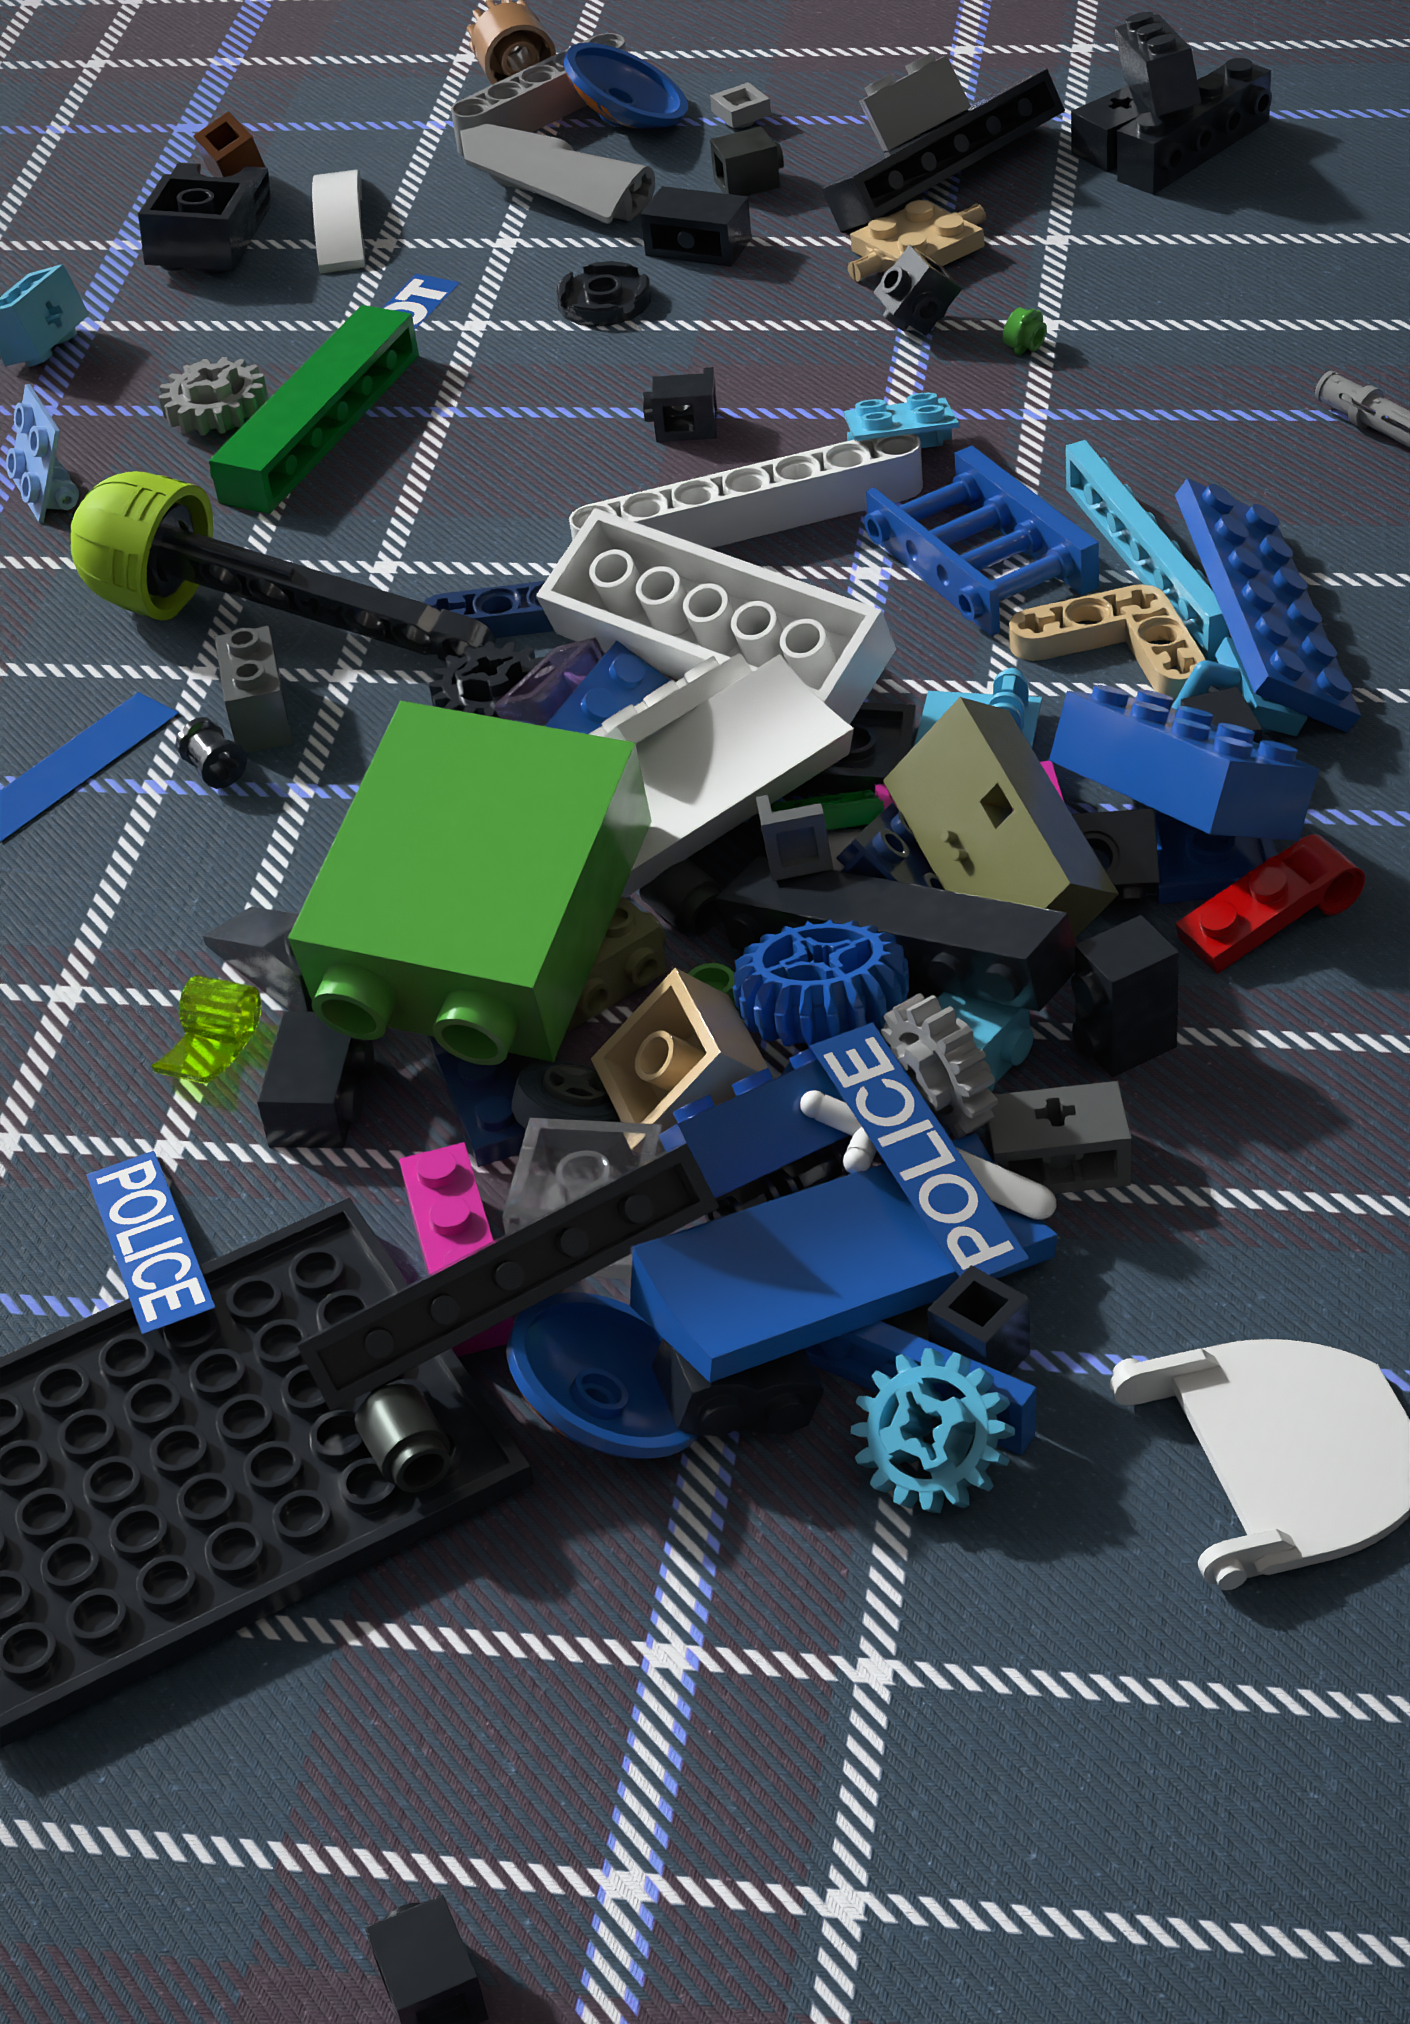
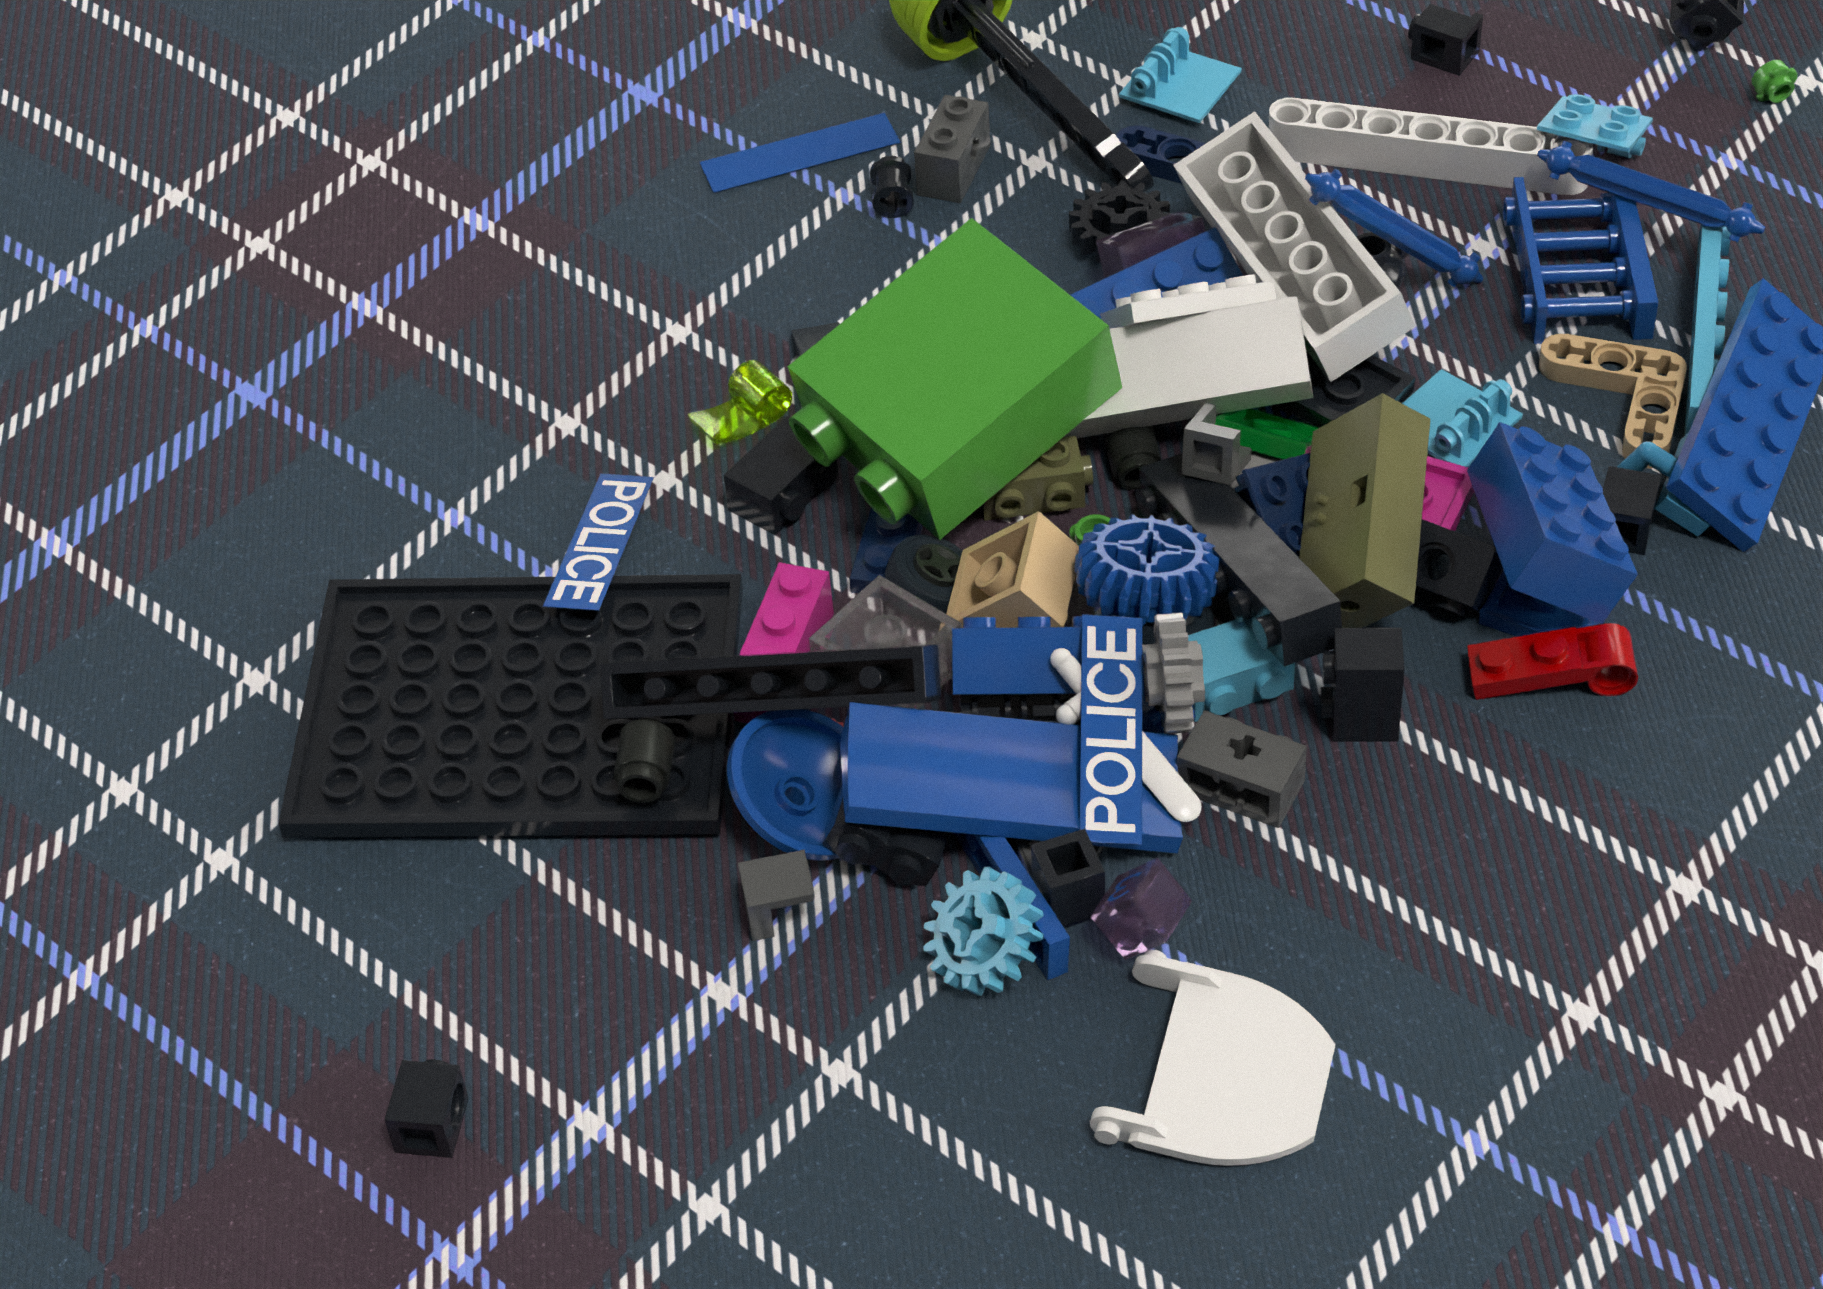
camera: 30 degrees right, 5 degrees up
(440, 542) = (1179, 79): none -> medium azure hinge
(651, 1504) = (773, 884): none -> dark grey panel
(755, 548) = (1394, 227): none -> blue wheel
(1011, 449) = (1651, 191): none -> blue wheel
(1082, 1323) = (1141, 909): none -> clear purple brick

